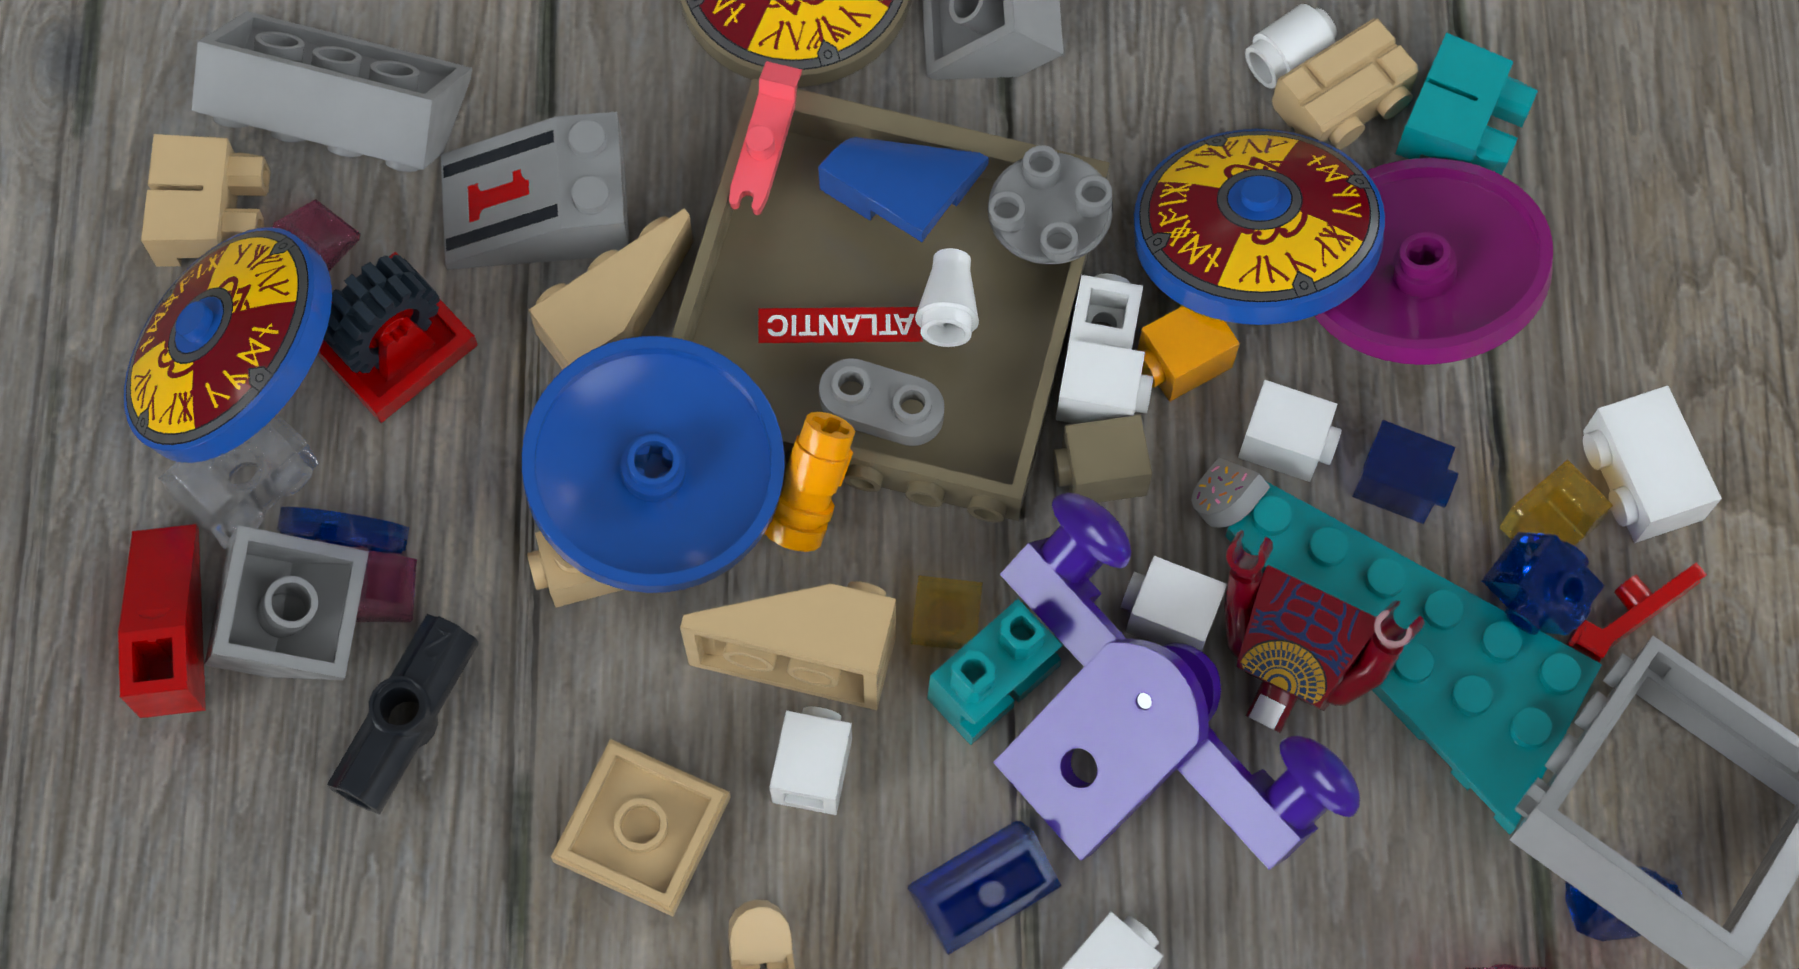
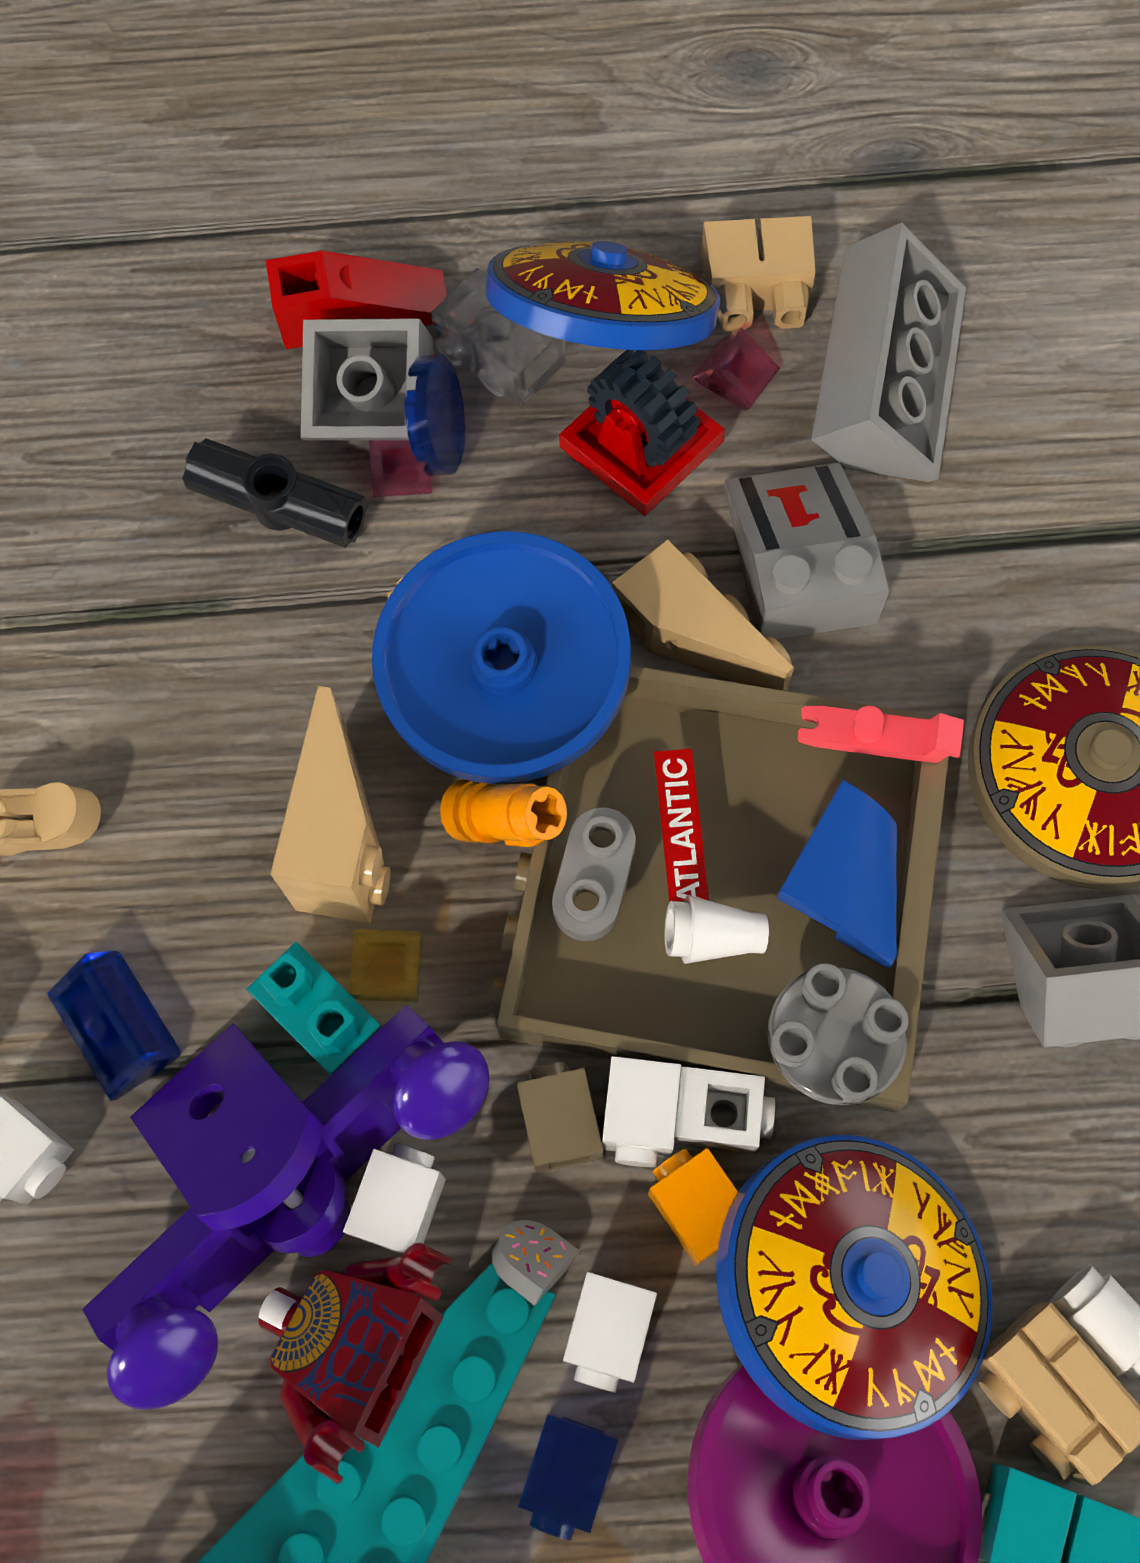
camera: 90 degrees right, 0 degrees up
(641, 827) = (171, 702): tan plate -> none
(811, 760) = (227, 844): white brick -> none

